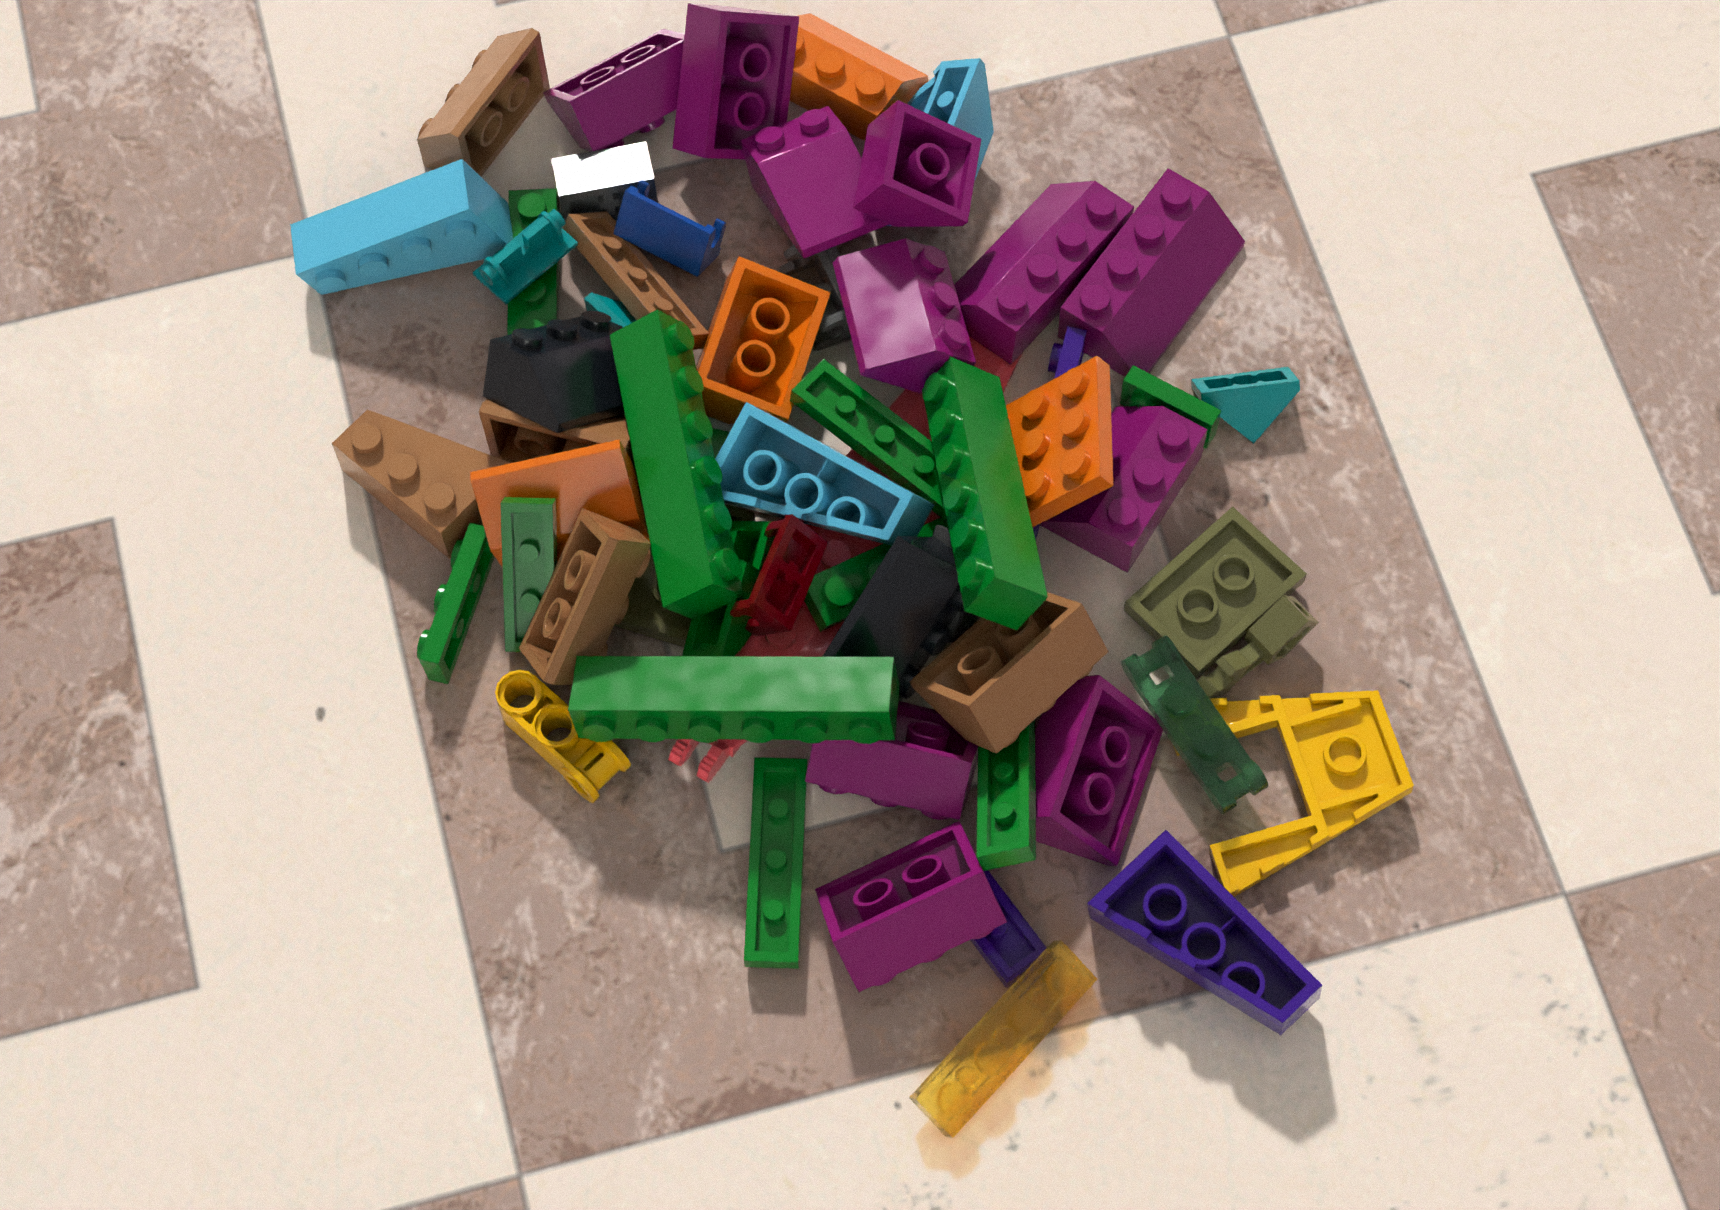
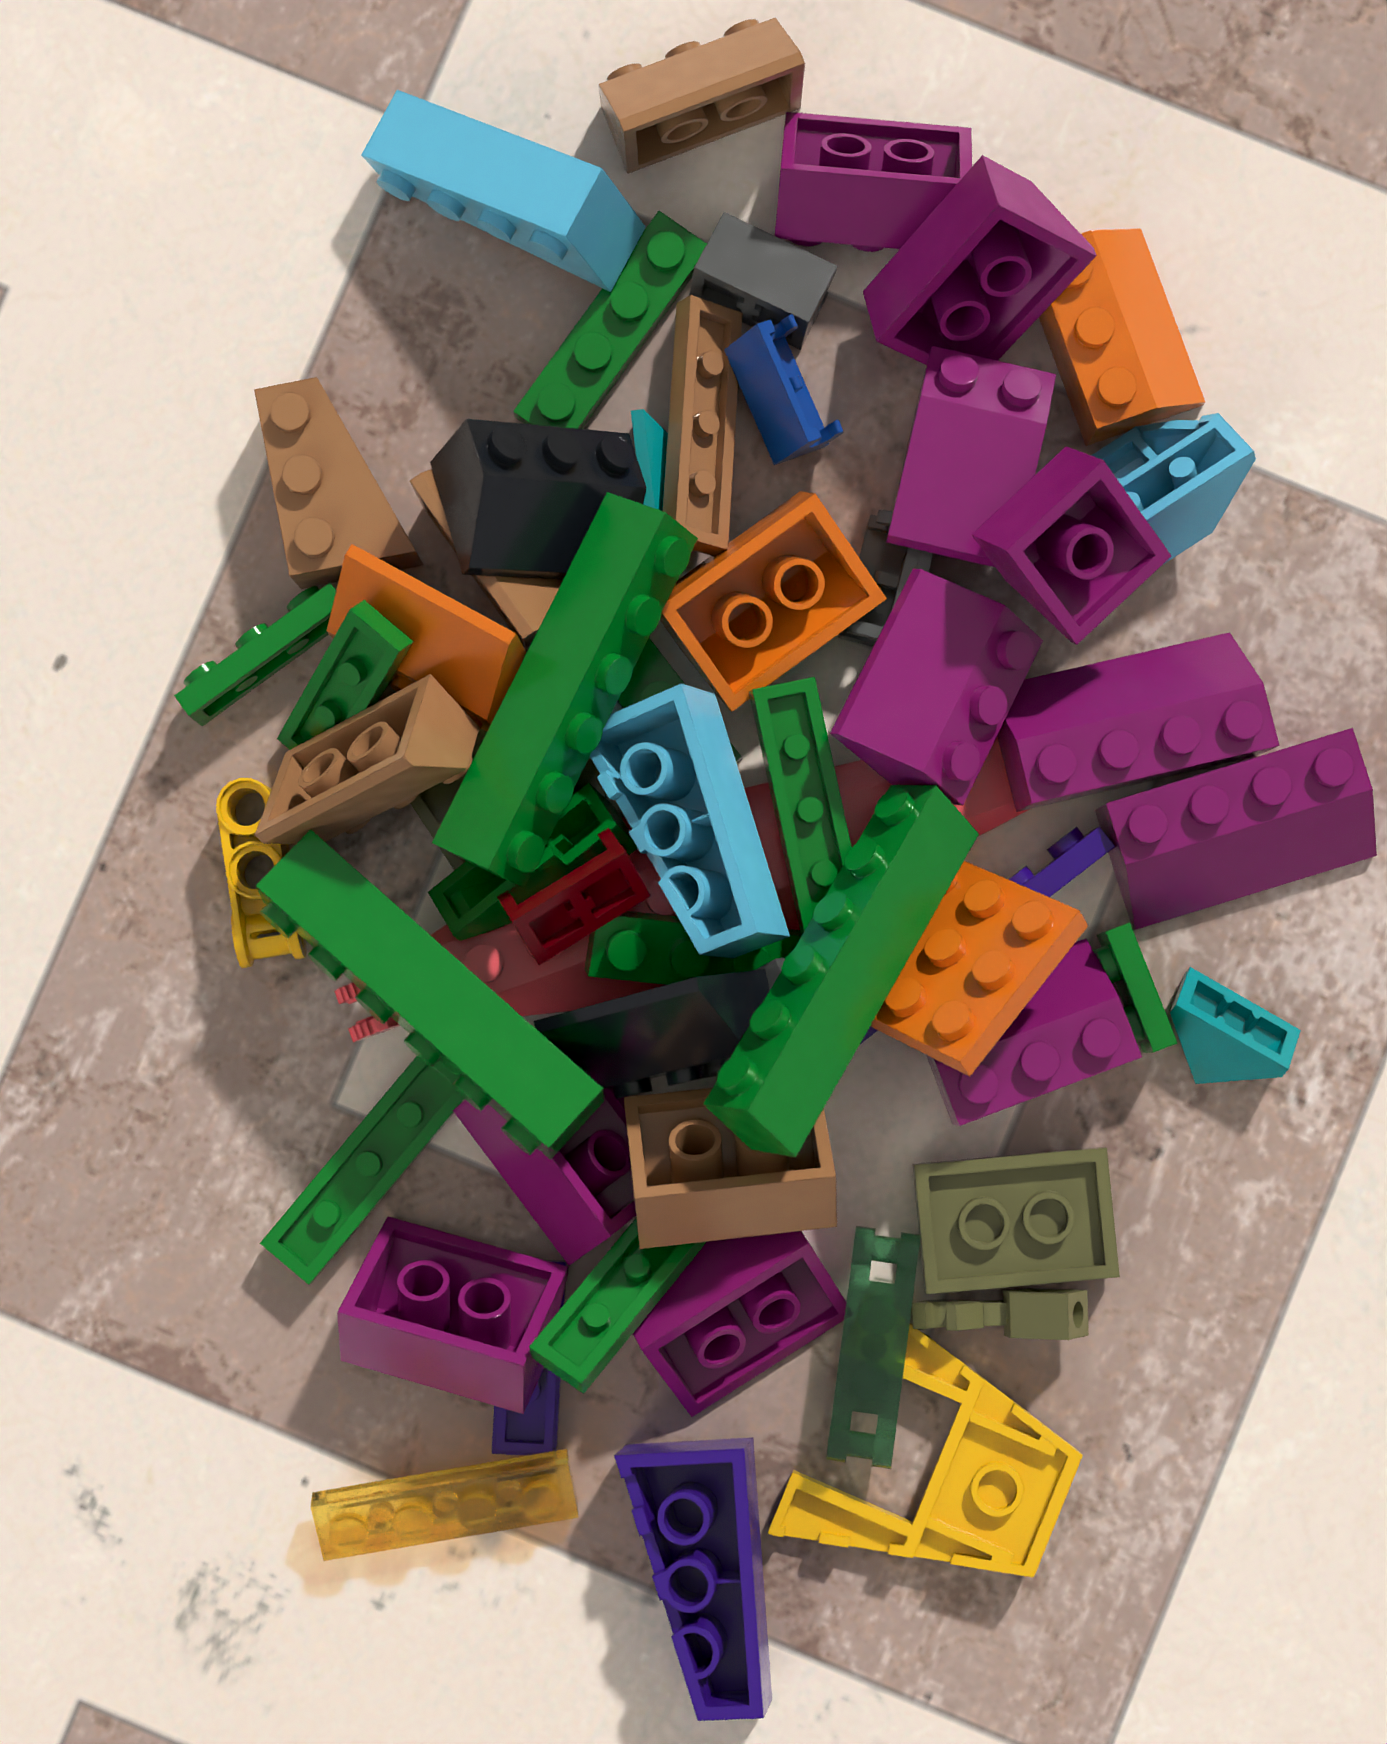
camera: 40 degrees right, 20 degrees up
(526, 256) = (608, 314): teal hinge -> none

